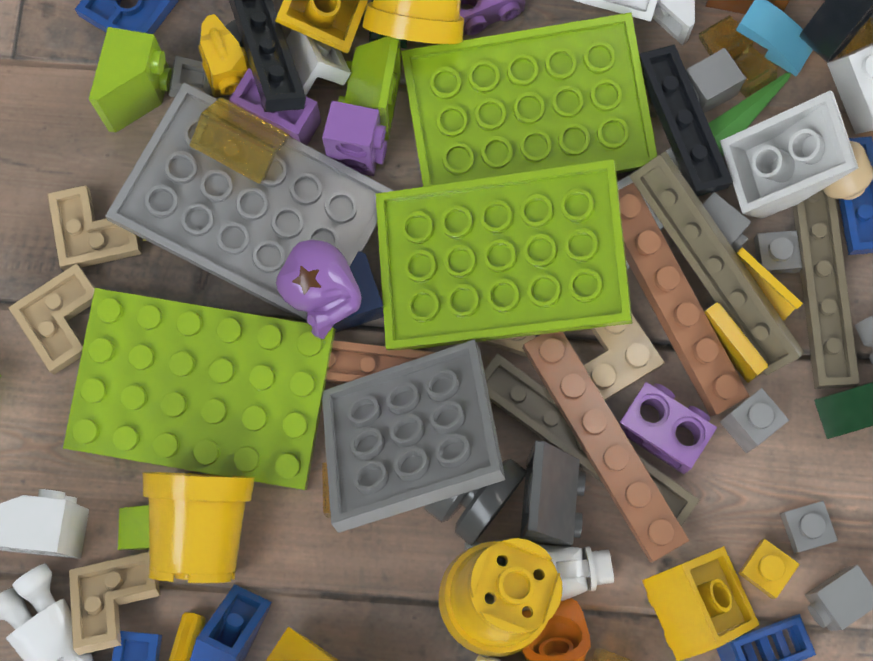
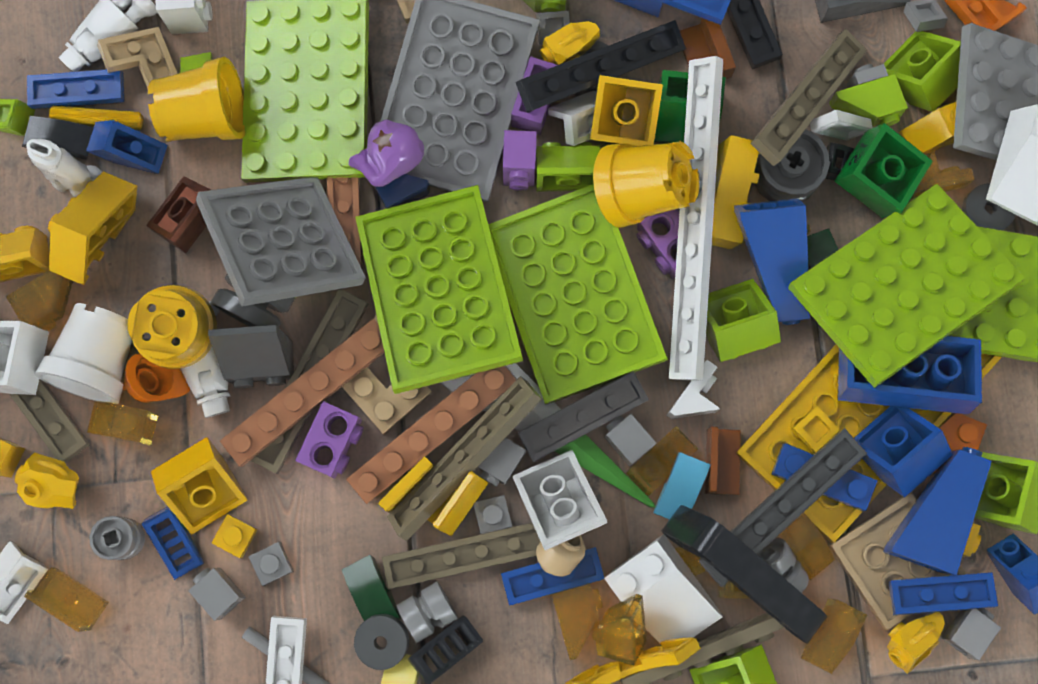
camera: 80 degrees right, 5 degrees up
(238, 139) = (497, 69): clear yellow panel -> none
(333, 573) = (179, 216): none -> copper slope
(754, 421) = (344, 508): light grey brick -> none

